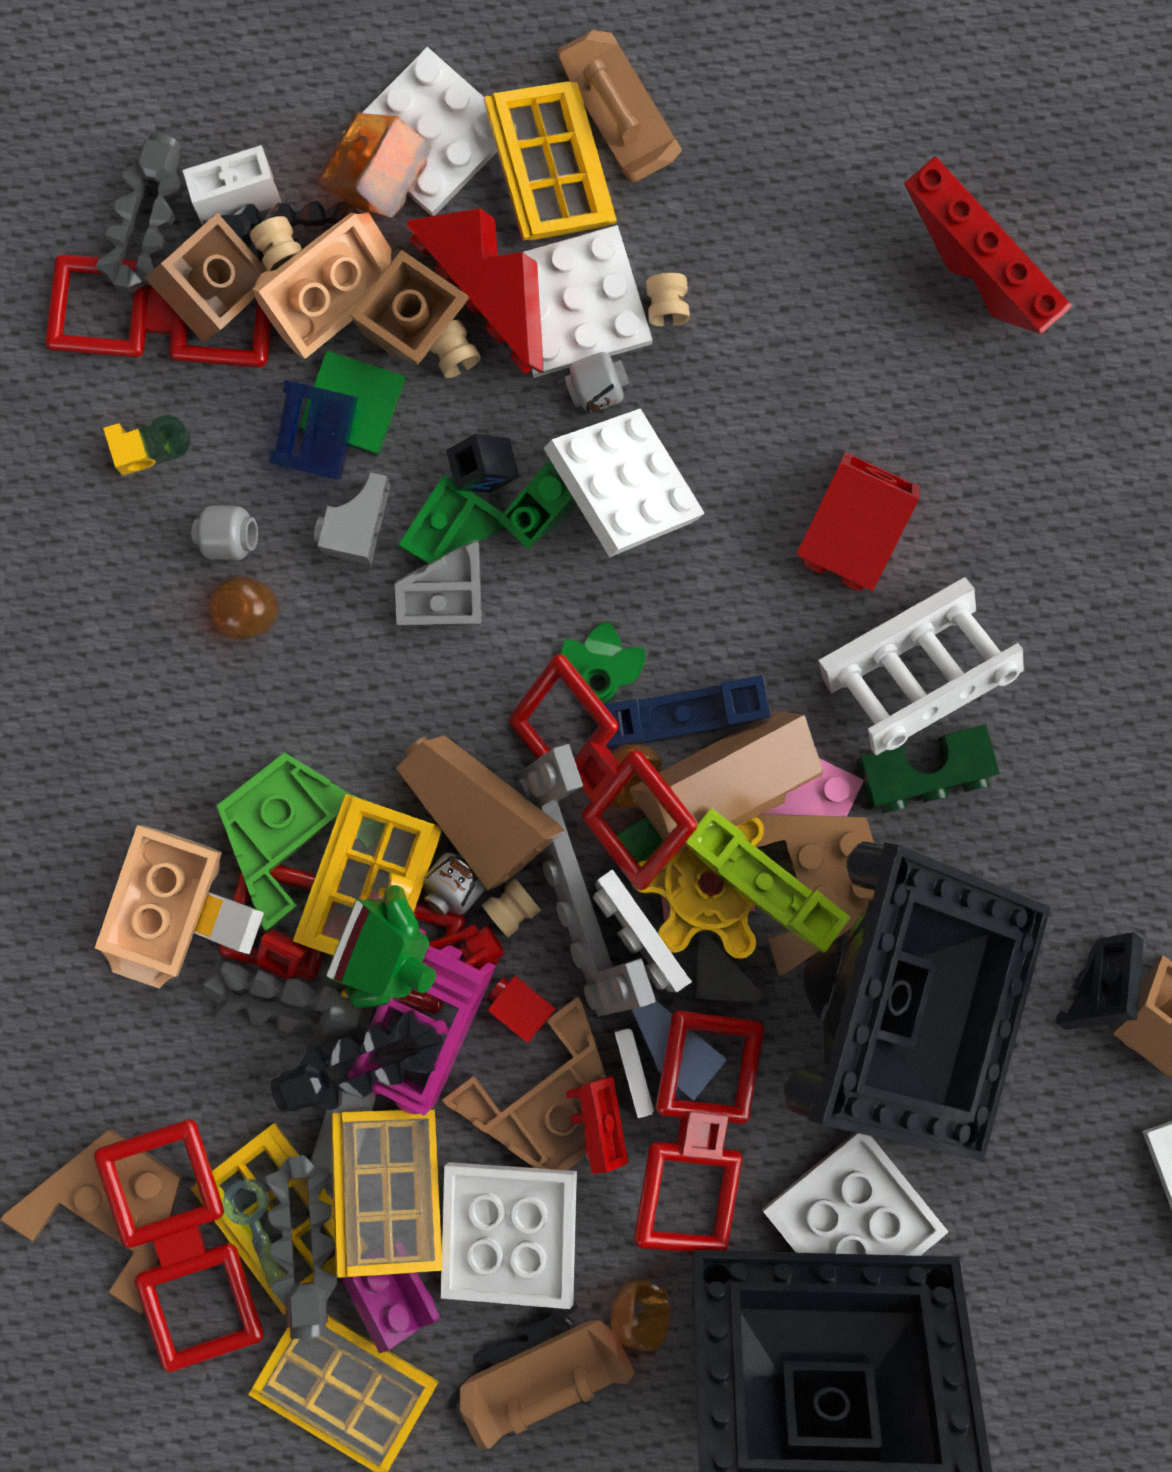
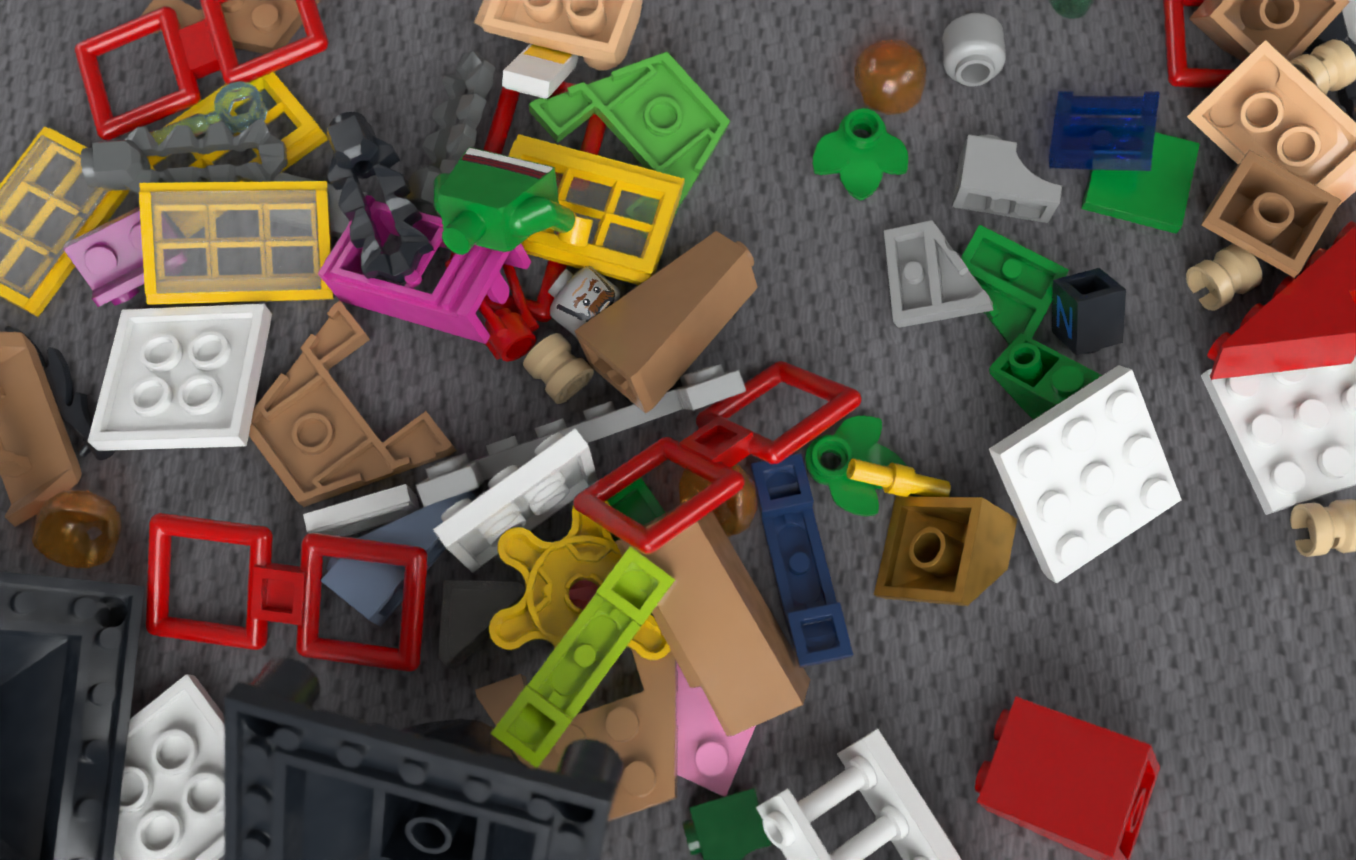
camera: 90 degrees right, 10 degrees down
(281, 955) = (503, 124): red slope -> none
(324, 642) = (860, 159): none -> green plate
(519, 1007) = (441, 381): red brick -> none
(596, 382) = (1207, 443): light grey head -> none
(603, 1126) = (295, 470): red plate -> none
(618, 629) = (897, 479): none -> yellow bar
(680, 599) = (944, 549): none -> pearl gold slope

